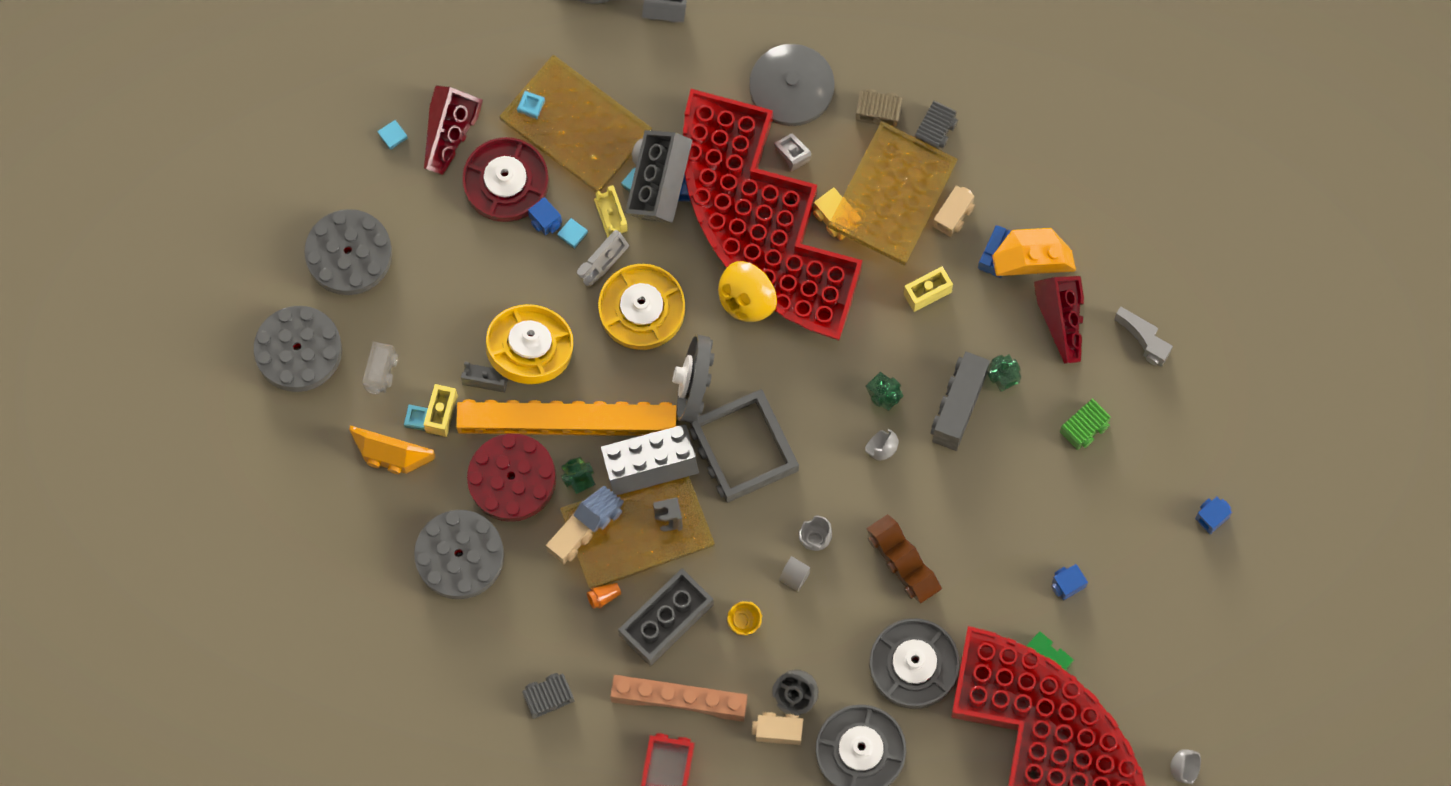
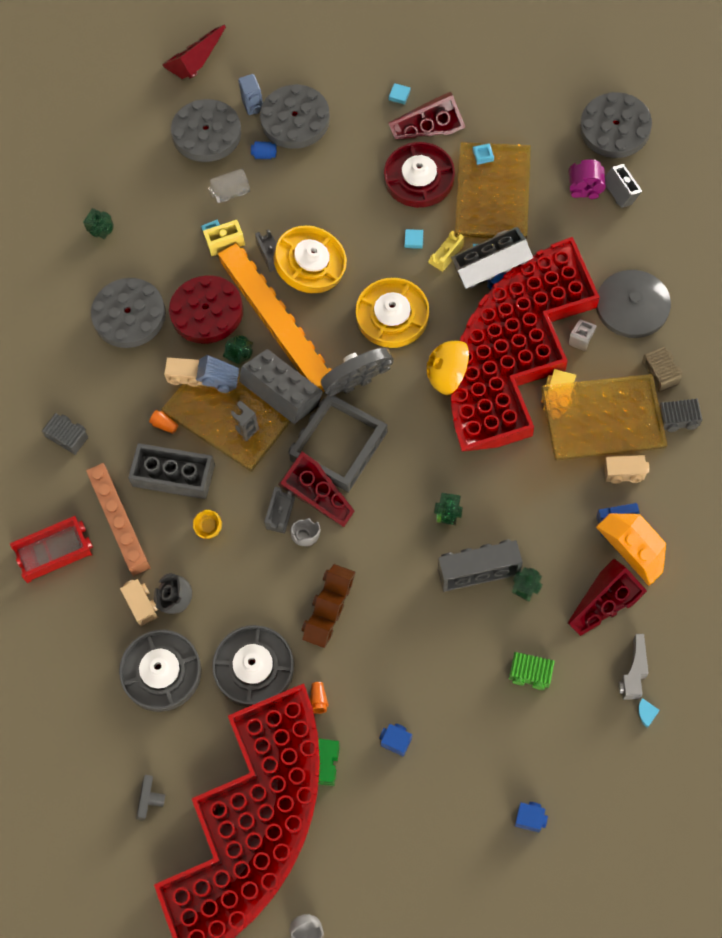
camera: 60 degrees right, 5 degrees down
(189, 306) = (193, 58): none -> dark red wedge
(289, 277) = (250, 94): none -> sand blue brick
(329, 522) = (98, 223): none -> clear green brick
(361, 308) = (263, 150): none -> blue brick
(390, 452) = (174, 228): light orange wedge -> none
(545, 217) = (411, 213): blue brick -> none
(603, 258) = (409, 266): light grey hinge -> none
(634, 31) = (587, 179): none -> magenta brick
(774, 497) = (315, 488): none -> dark red wedge
(774, 544) = (279, 510): none -> dark grey hinge
(794, 574) = (266, 537): light grey brick -> none
(882, 445) = (406, 535): light grey hair -> none
(928, 289) = (549, 488): light yellow brick -> none
(983, 622) = (318, 698): none -> orange cone
(1187, 354) = (647, 712): none -> medium azure tile

